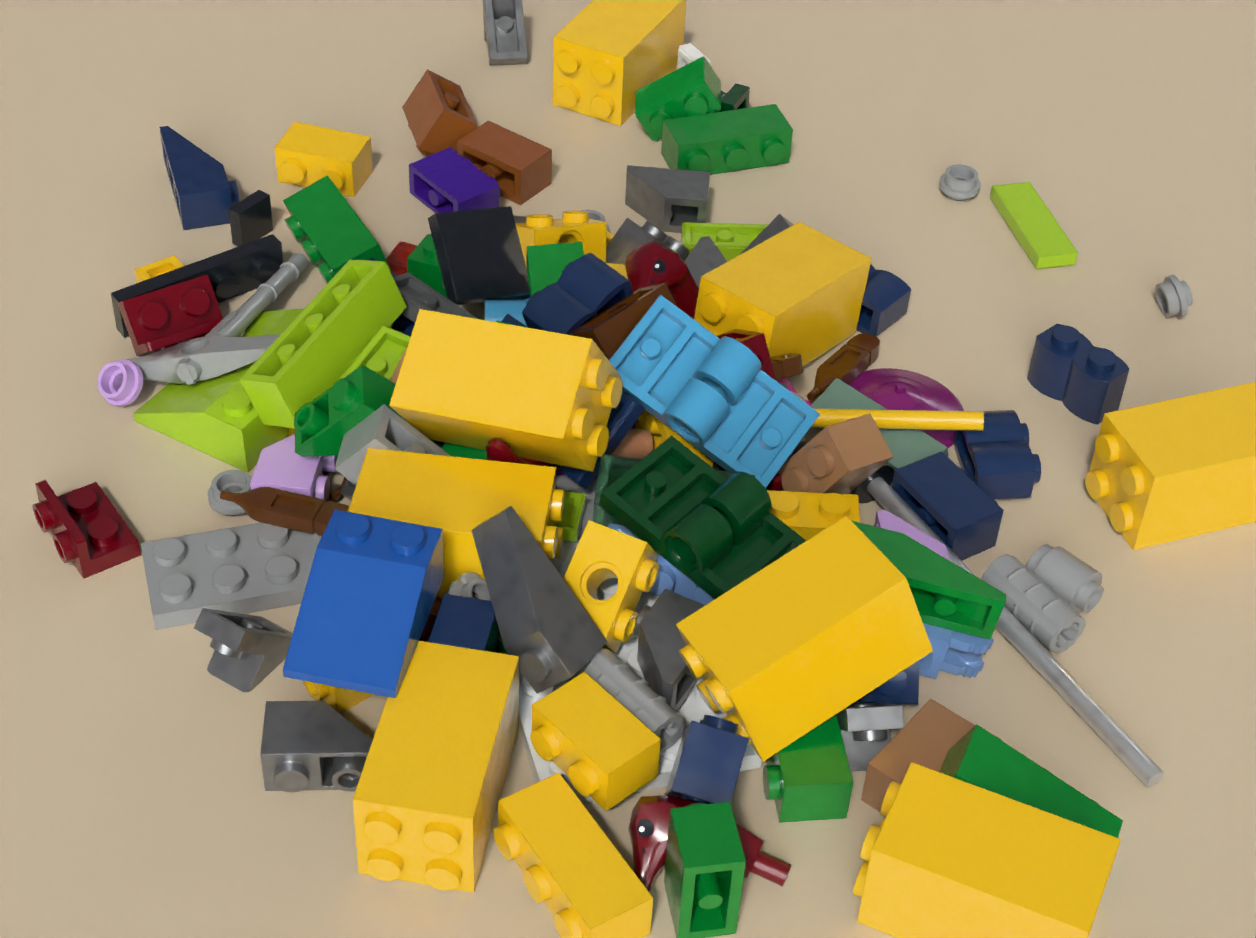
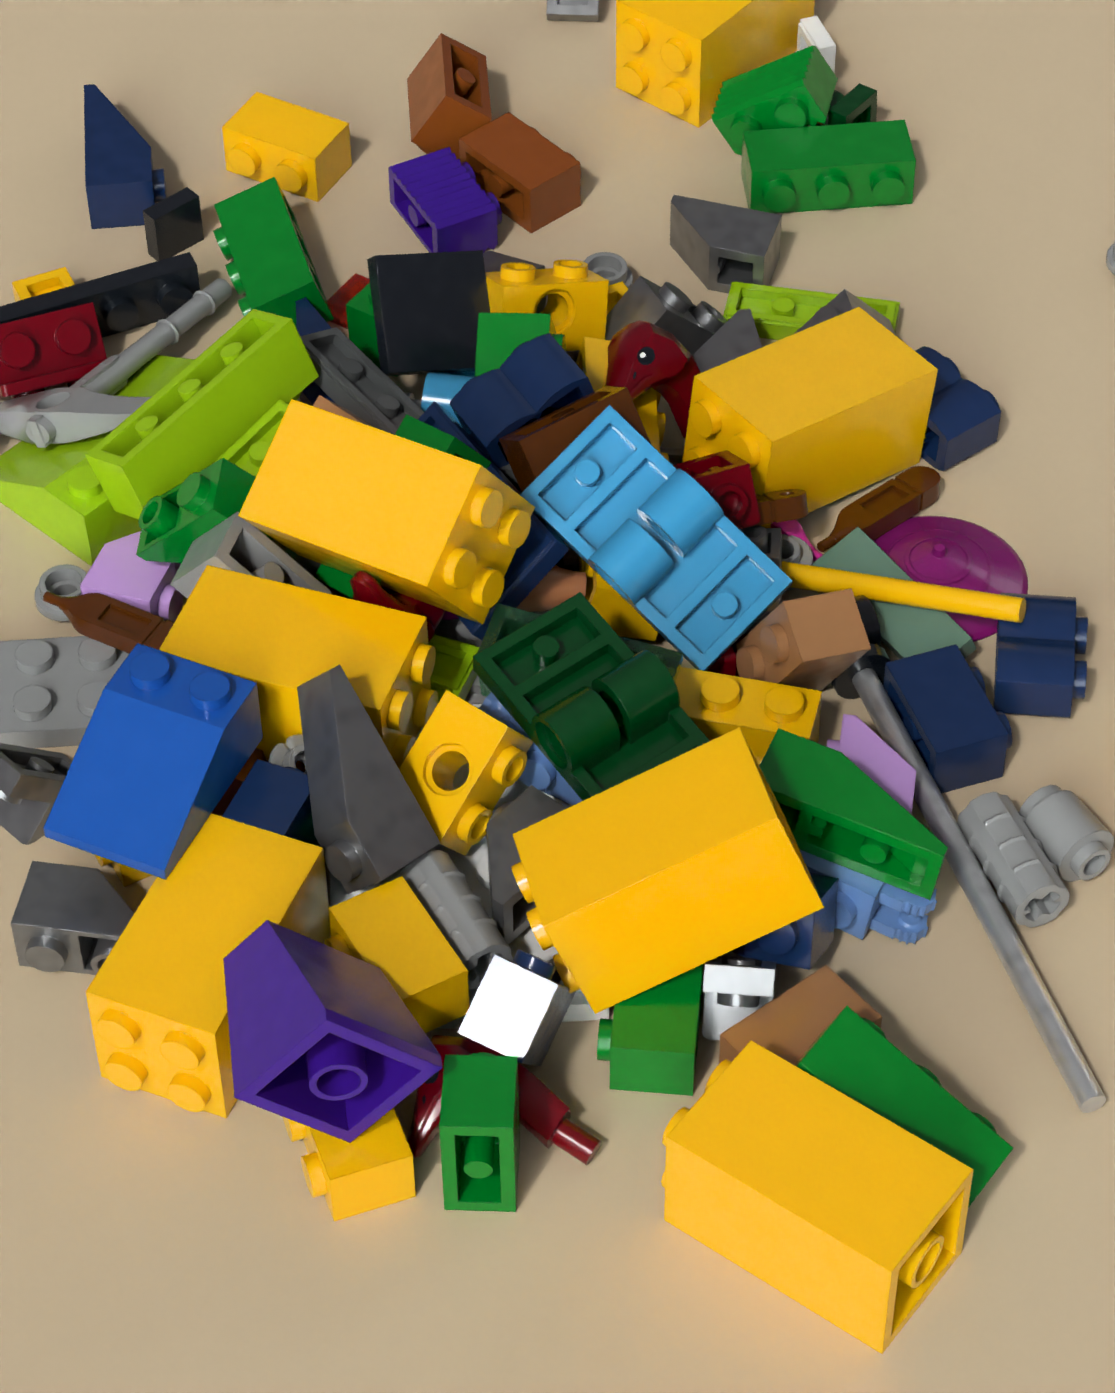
camera: 15 degrees right, 5 degrees up
(564, 806) = (319, 1034): none -> dark purple slope

